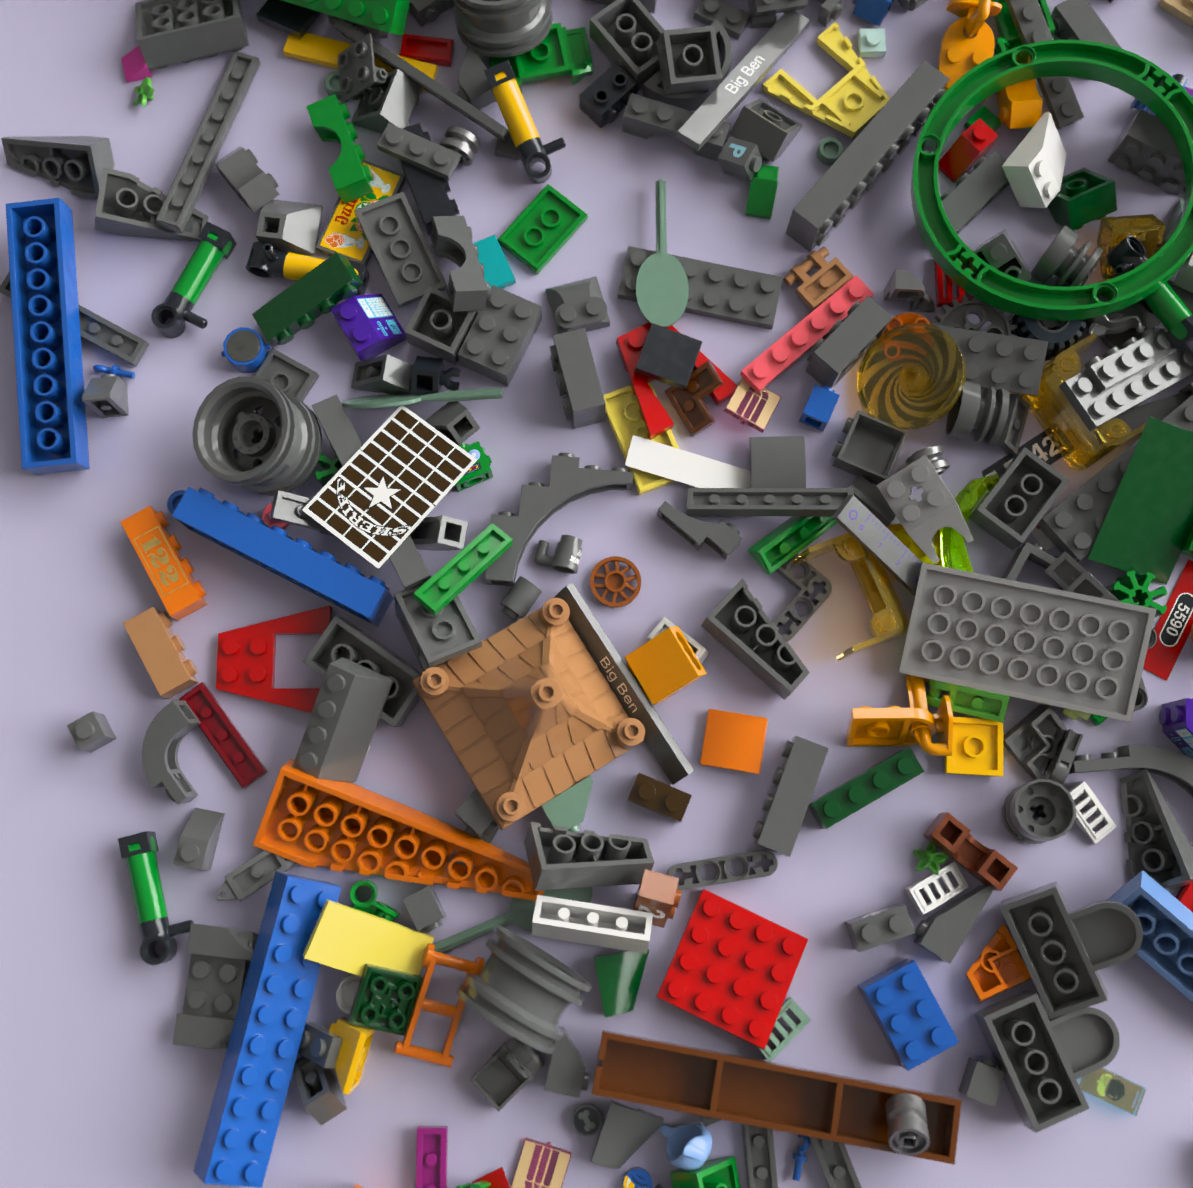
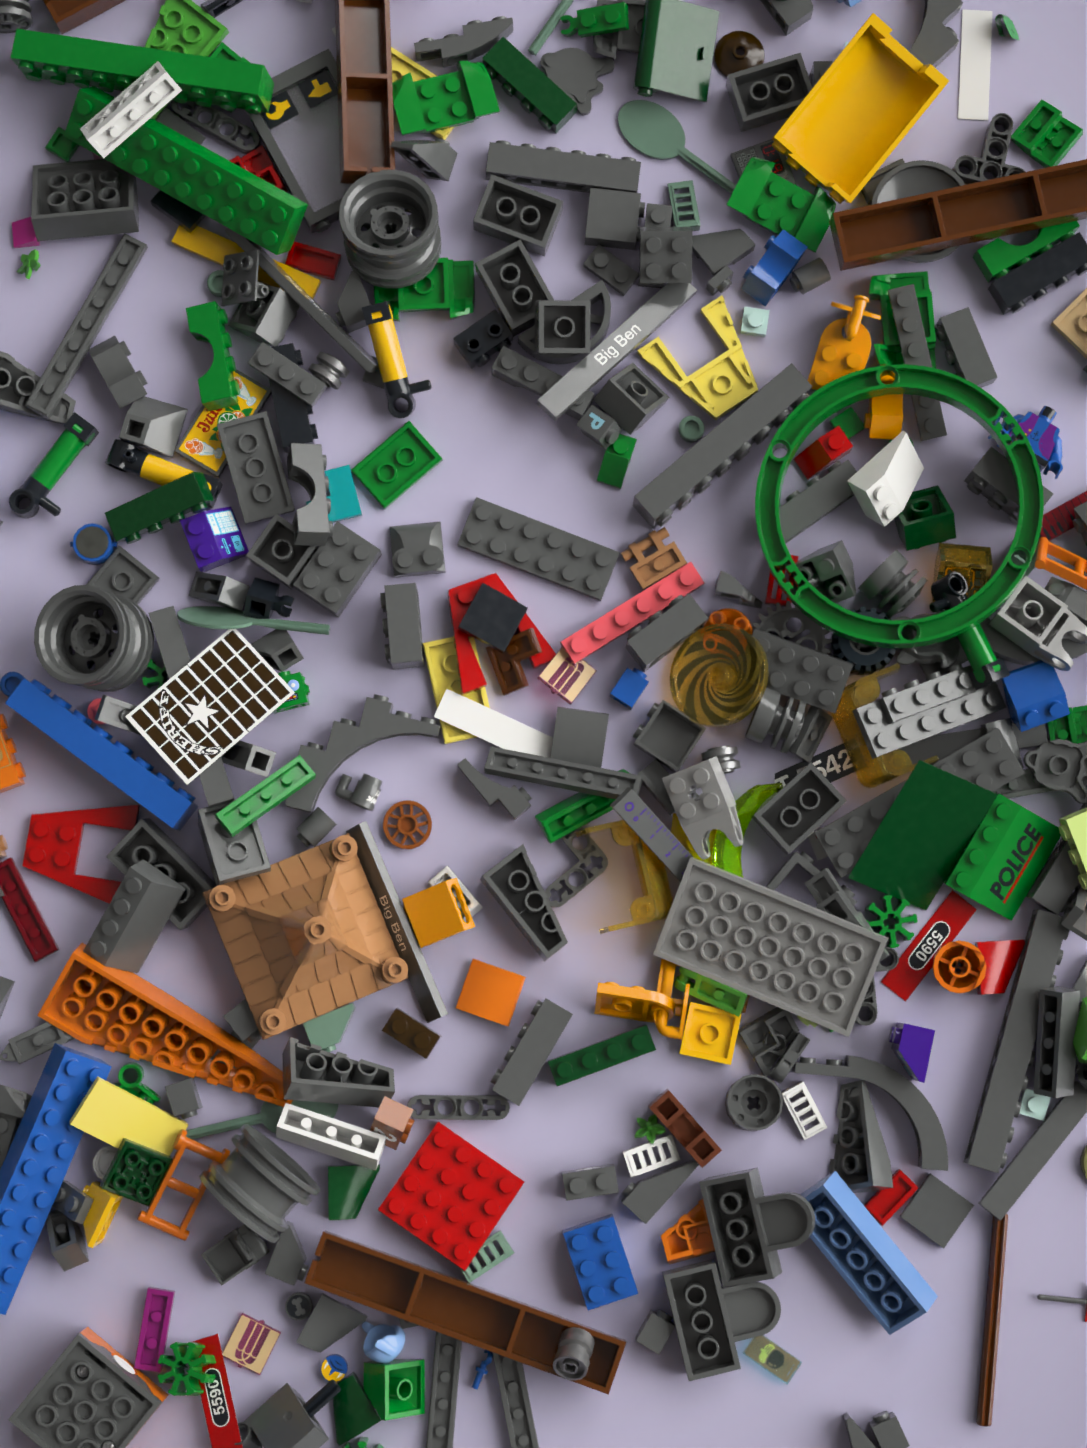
camera: 10 degrees right, 5 degrees up
(661, 280) = (501, 537): sand green piece -> none

